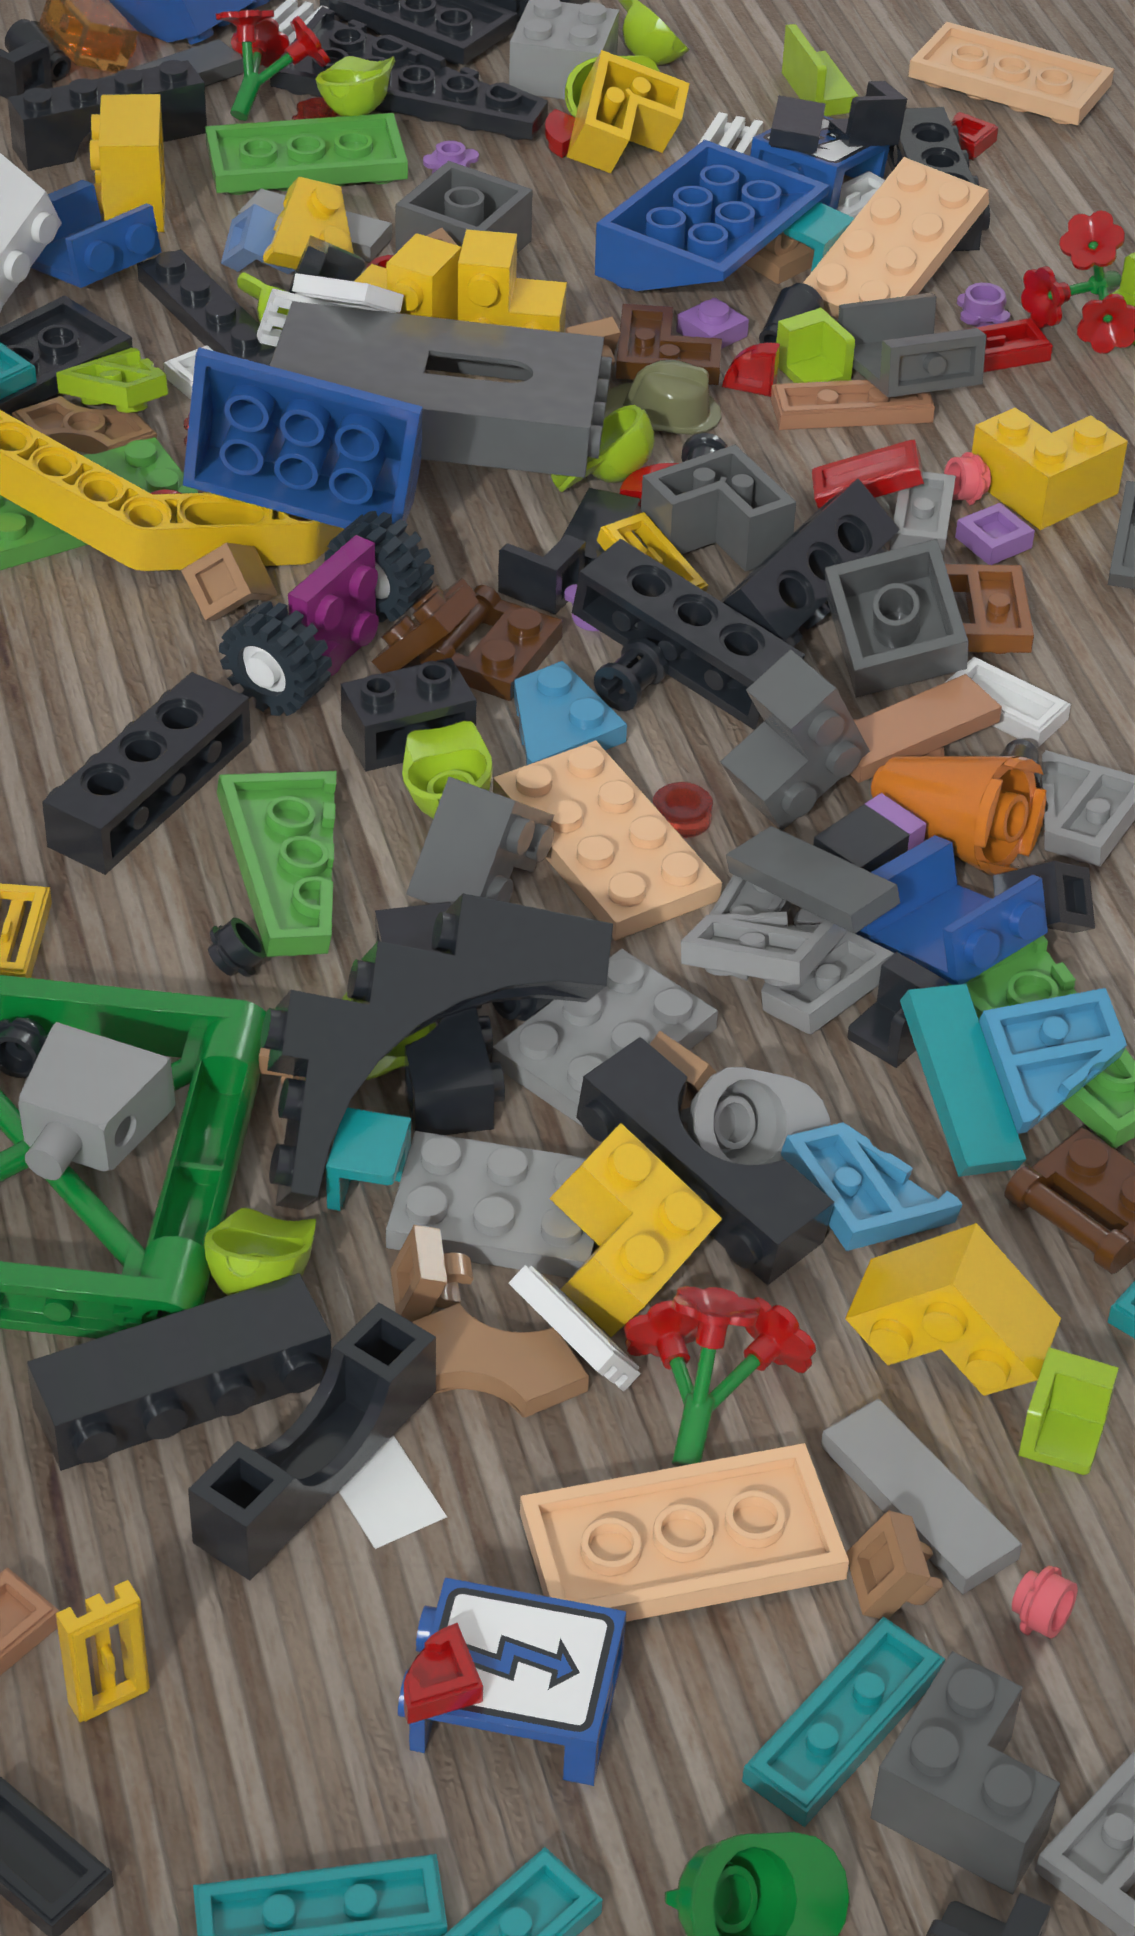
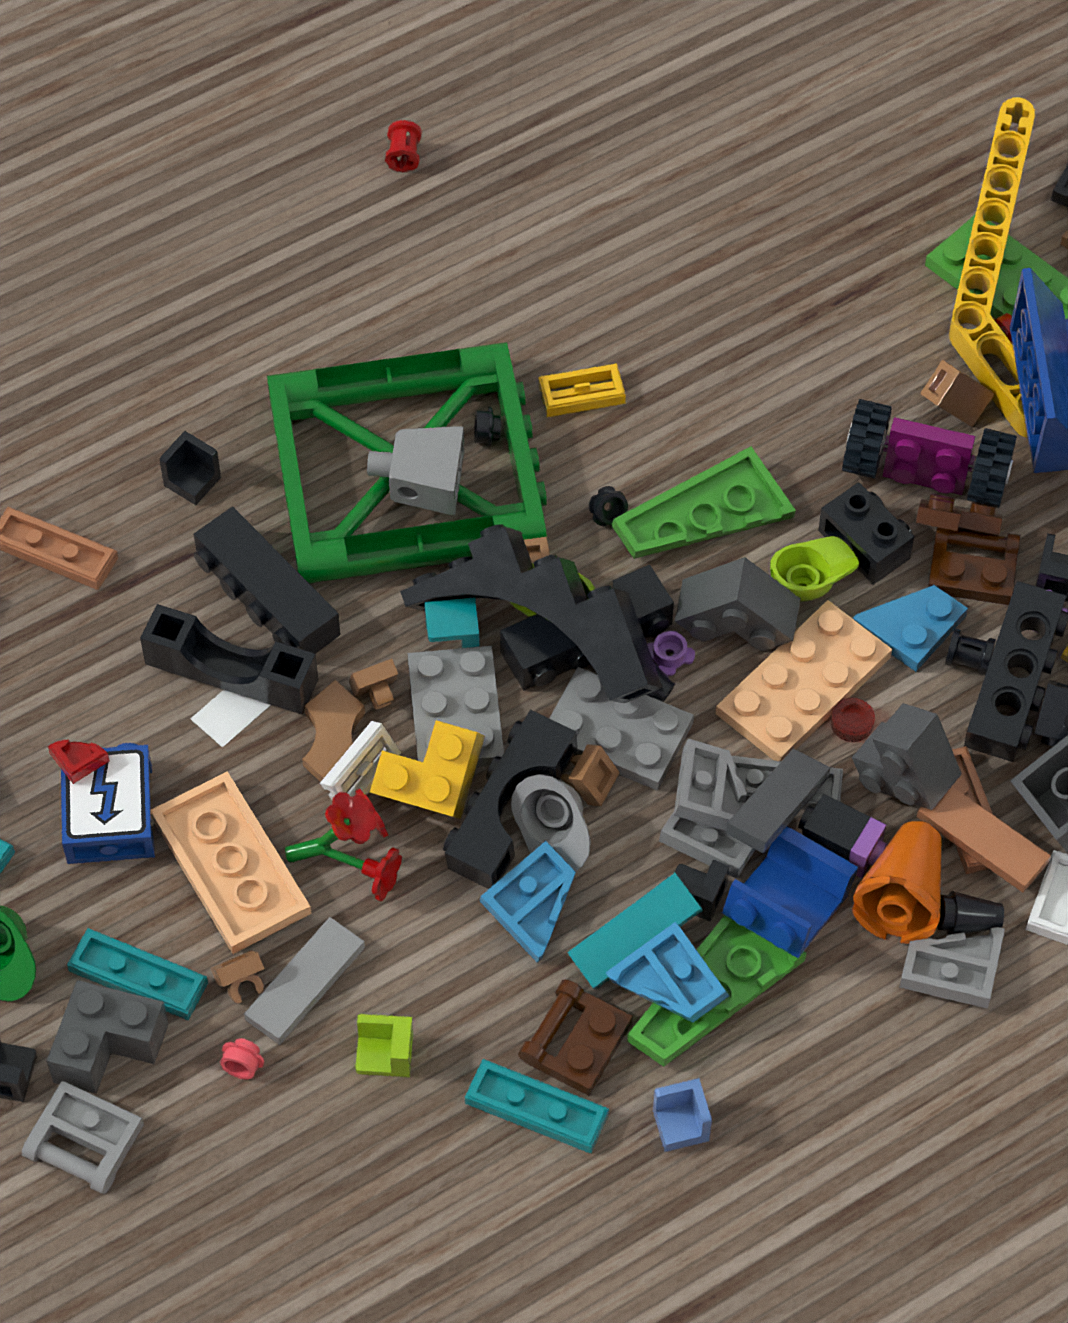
camera: 75 degrees right, 15 degrees up
(73, 1631) = (57, 603): yellow tile -> none
(146, 772) = (760, 423): black brick -> none
(257, 1249) = (362, 591): lime cap -> none
(959, 1299) = (427, 958): yellow brick -> none
(1065, 893) = (840, 955): black panel -> none

